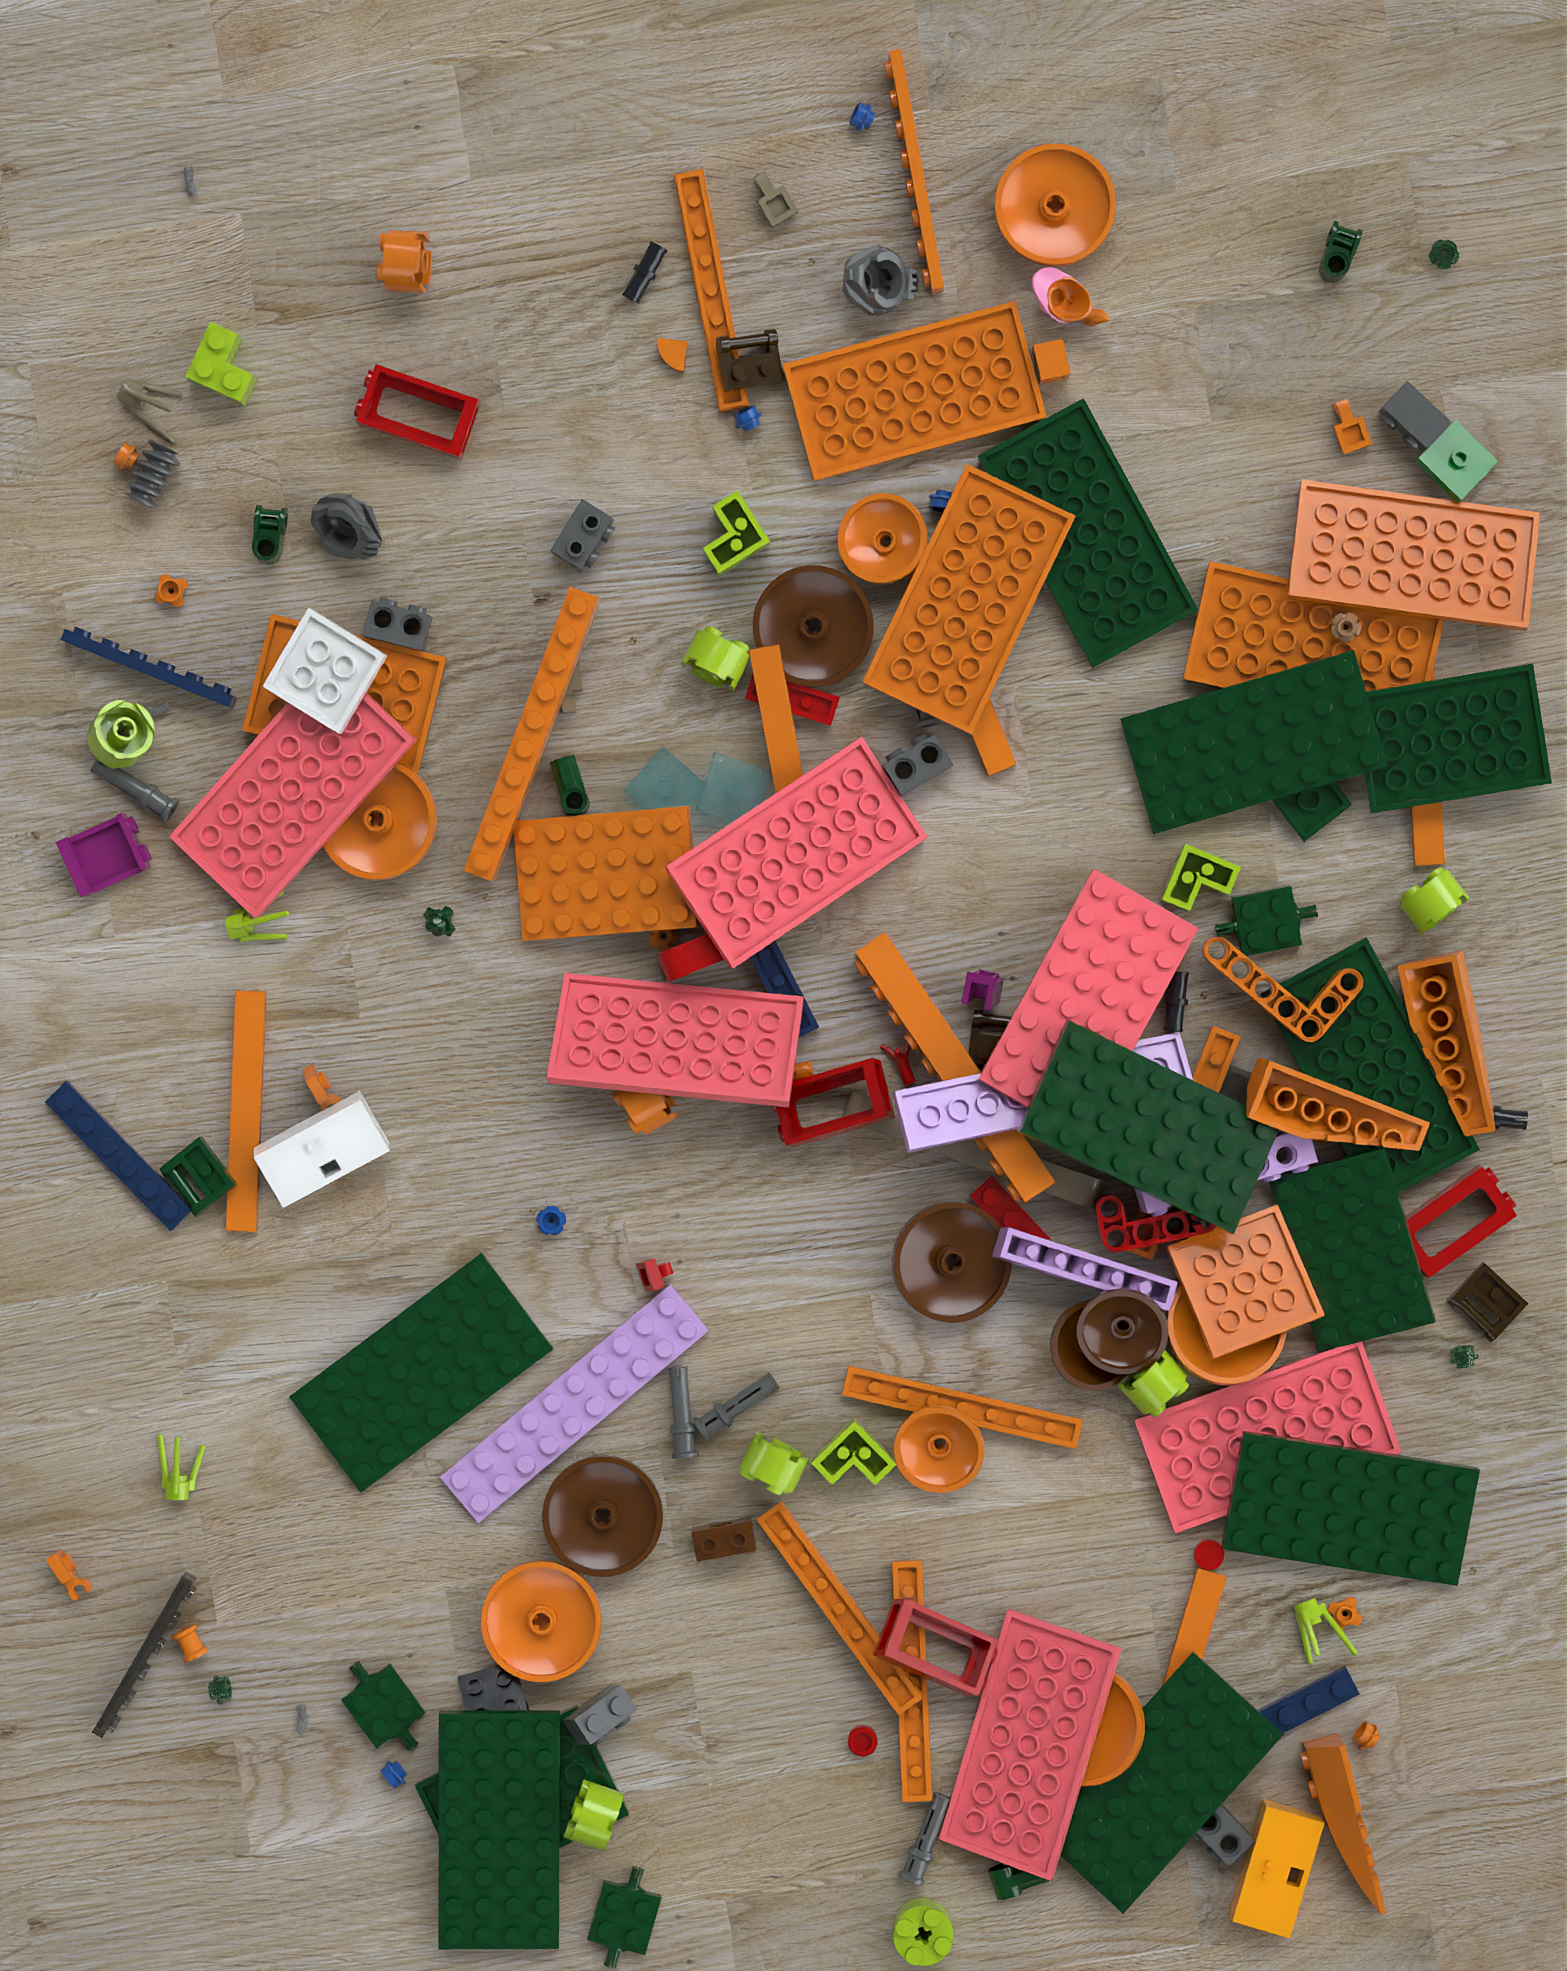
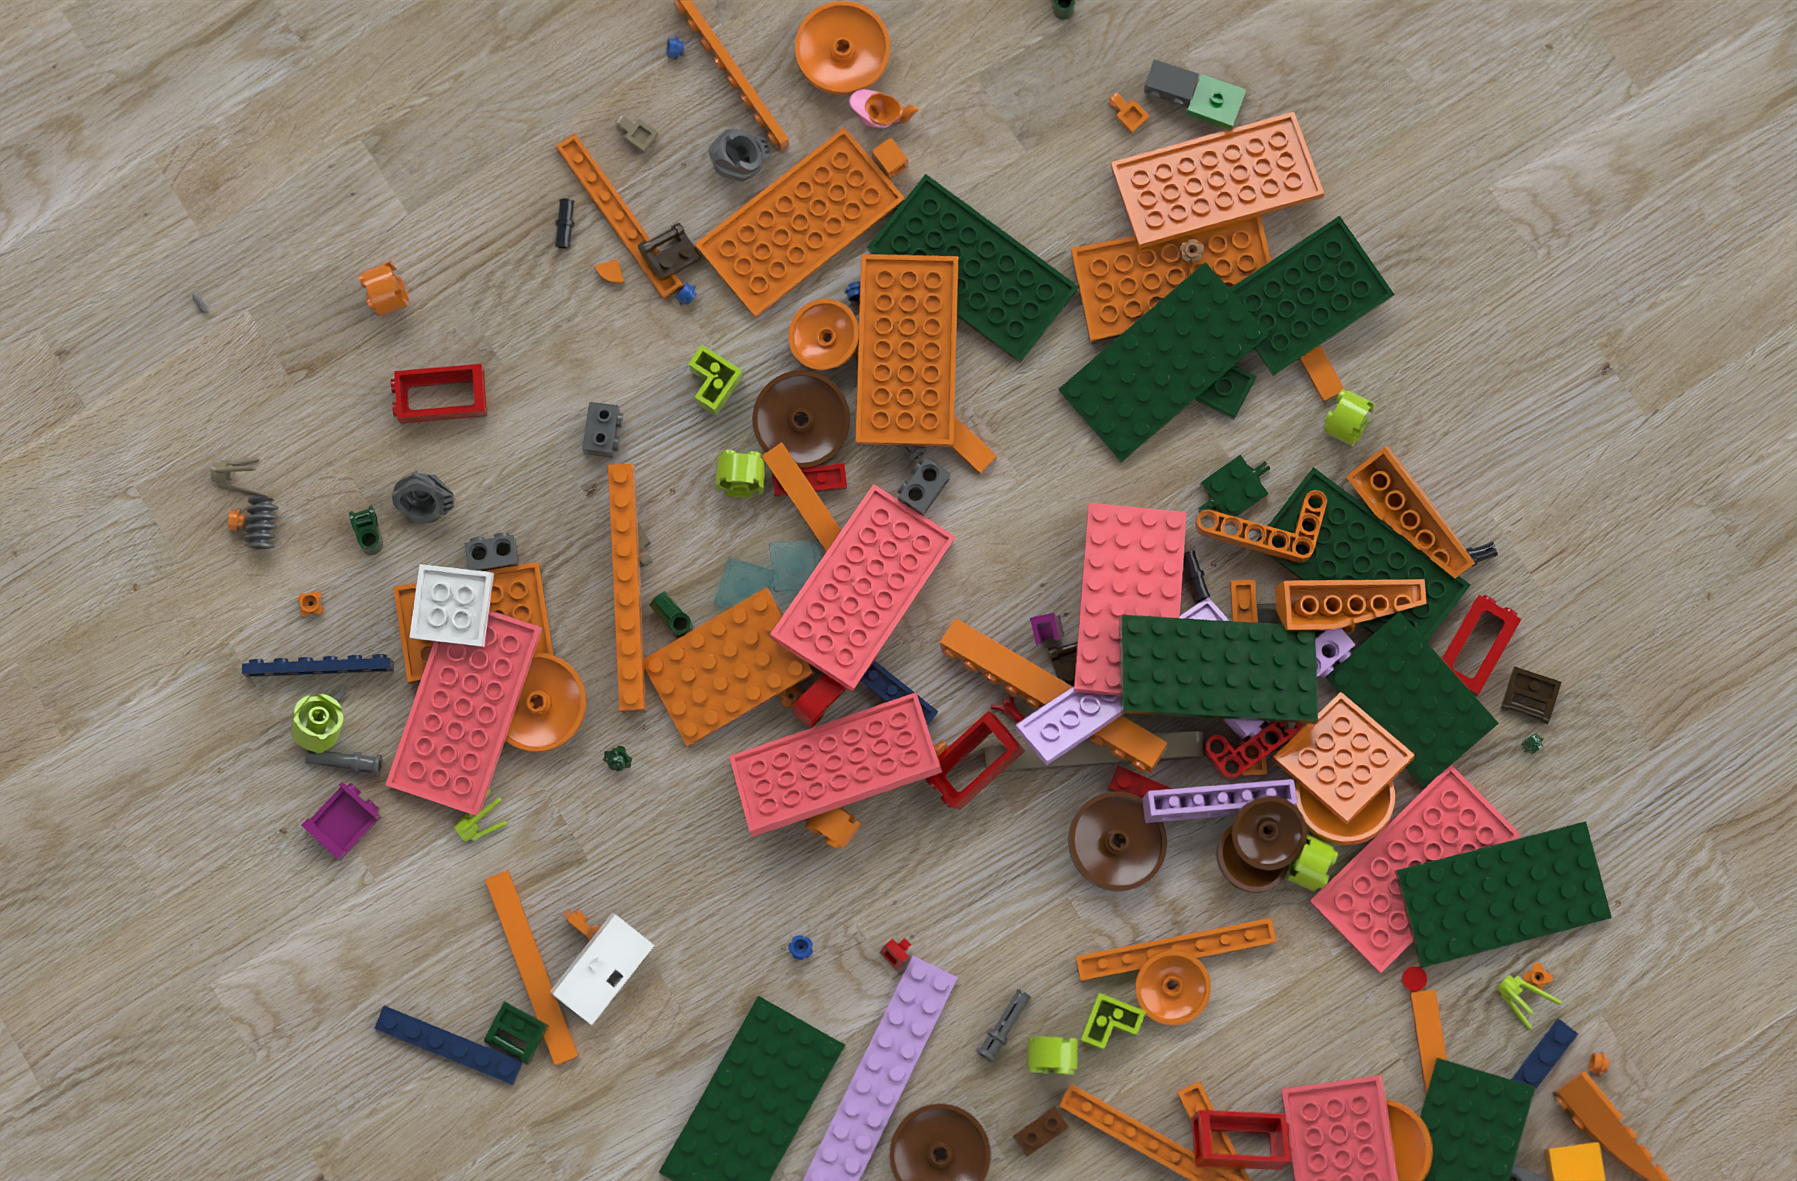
camera: 25 degrees left, 10 degrees down
(214, 368) = (274, 426): lime brick -> none
(682, 1429) = (971, 1060): dark grey pin -> none
(1195, 869) = (1164, 472): lime brick -> none

